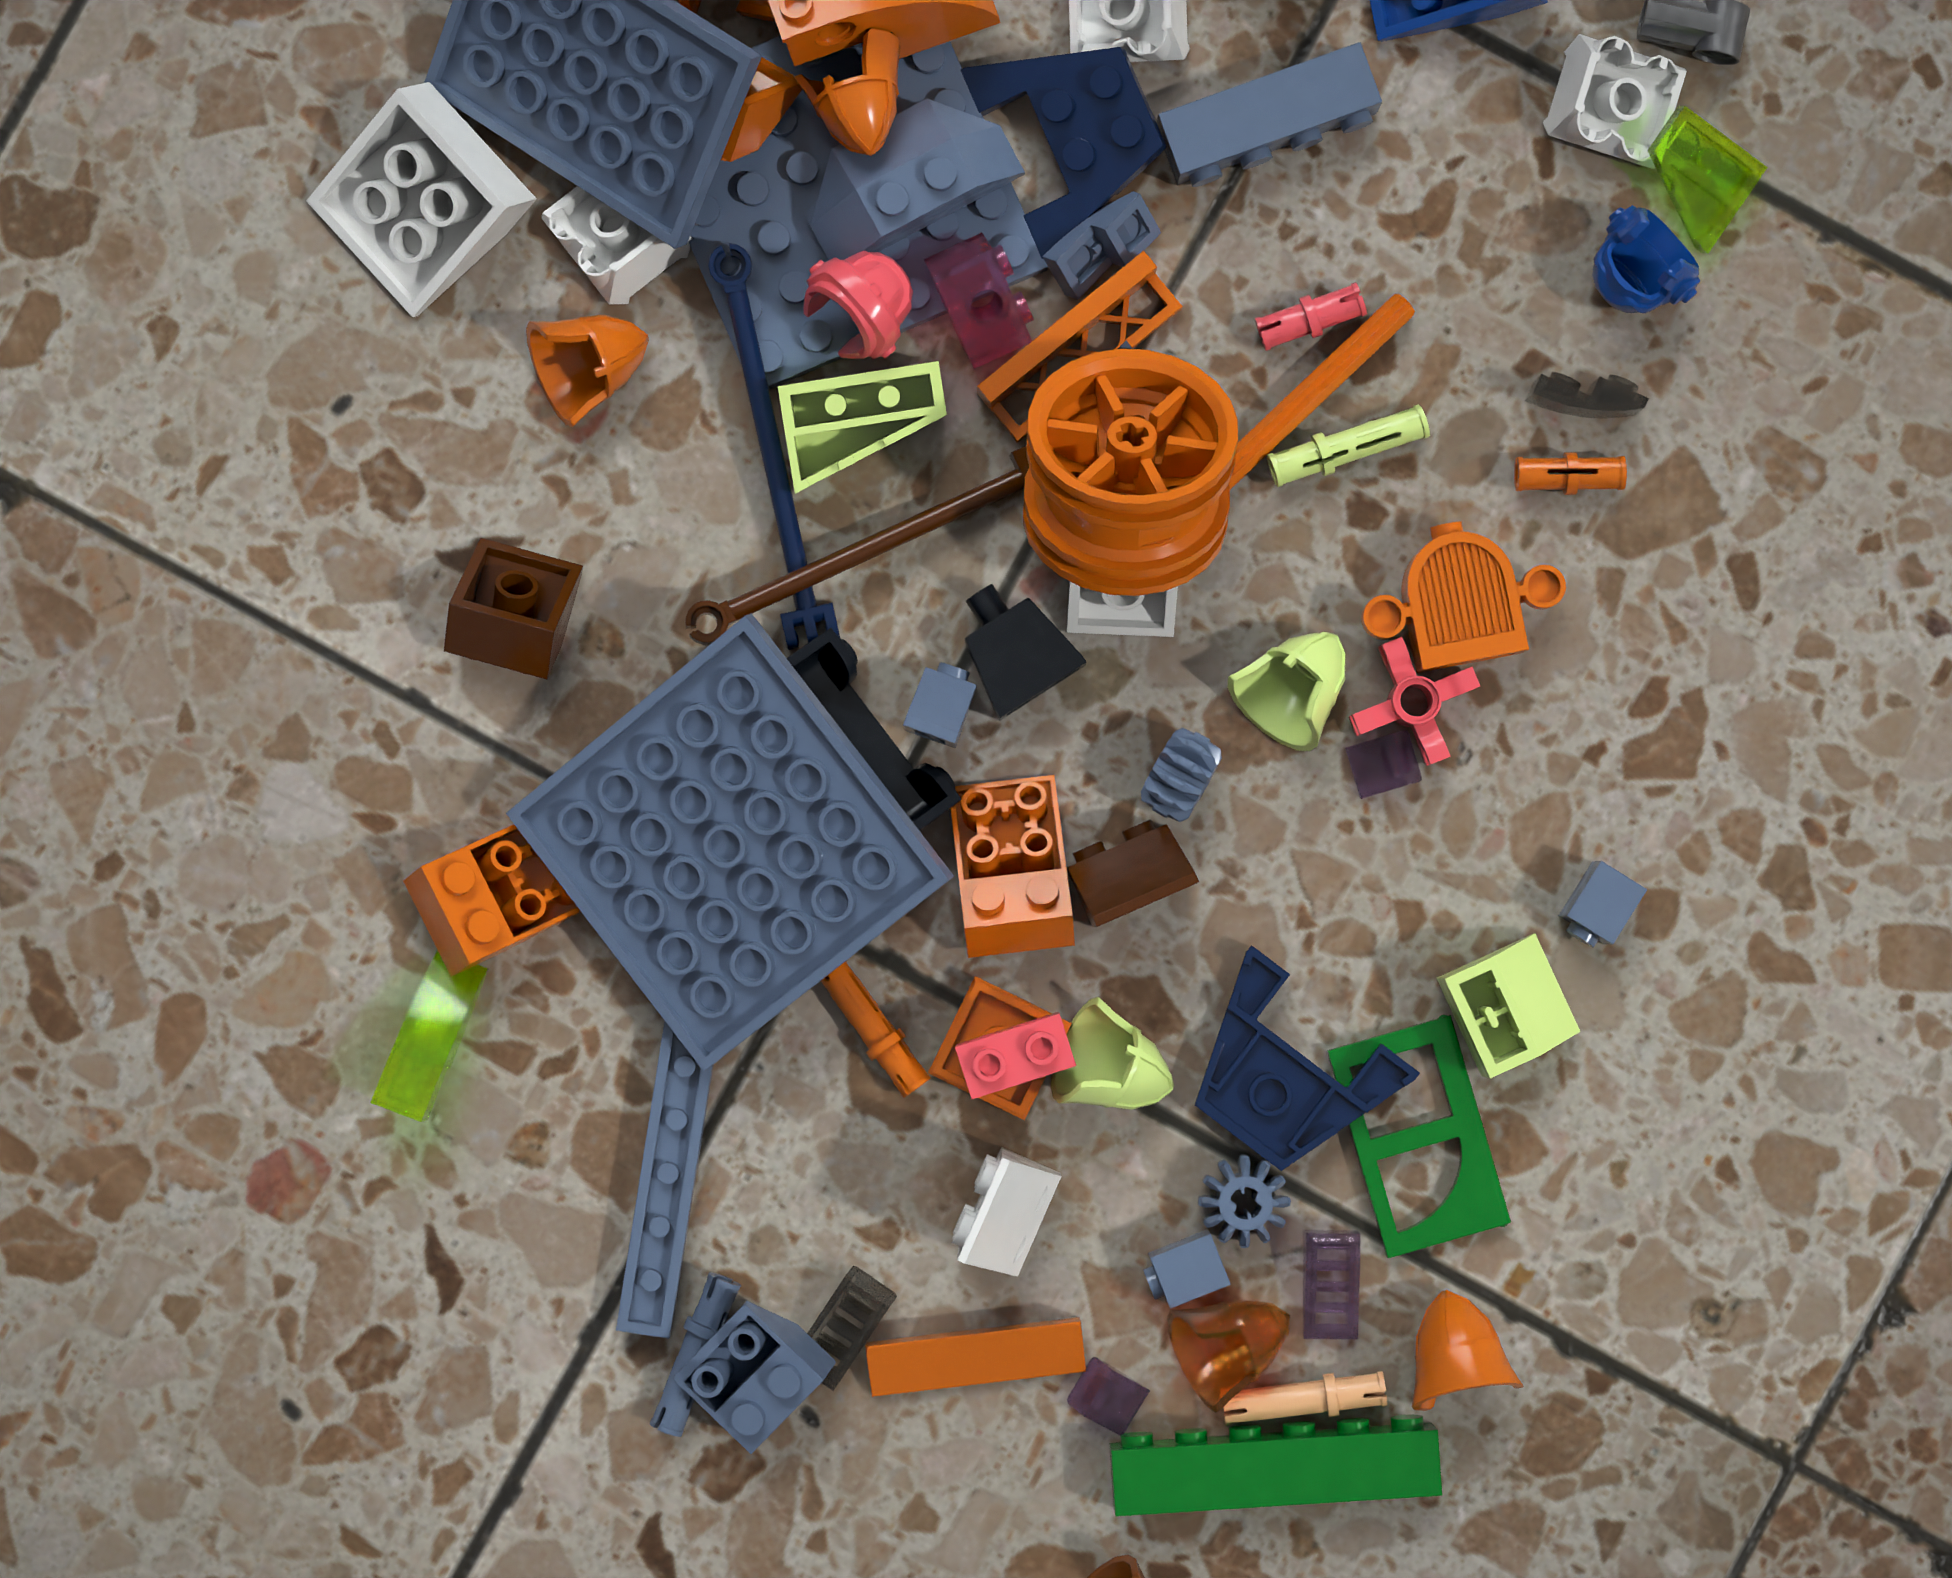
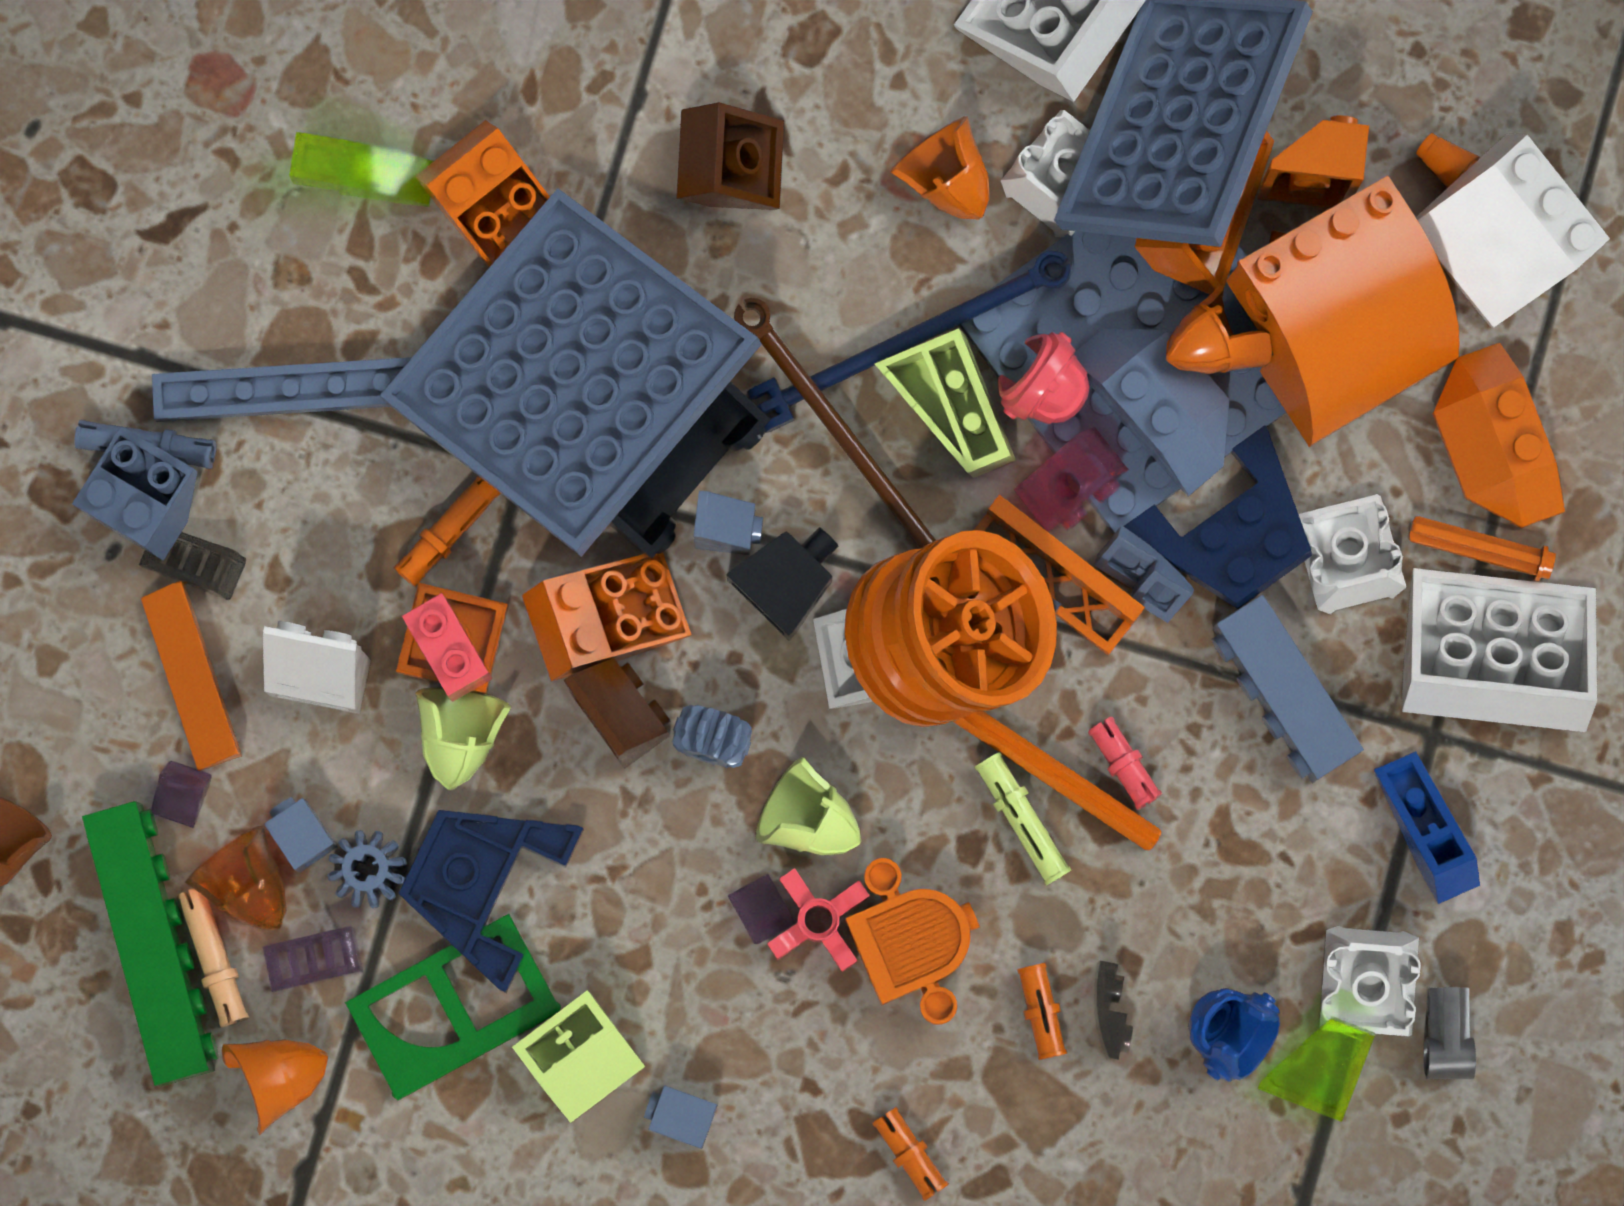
camera: 75 degrees right, 5 degrees down
(1696, 657) = (910, 1153): none -> orange pin

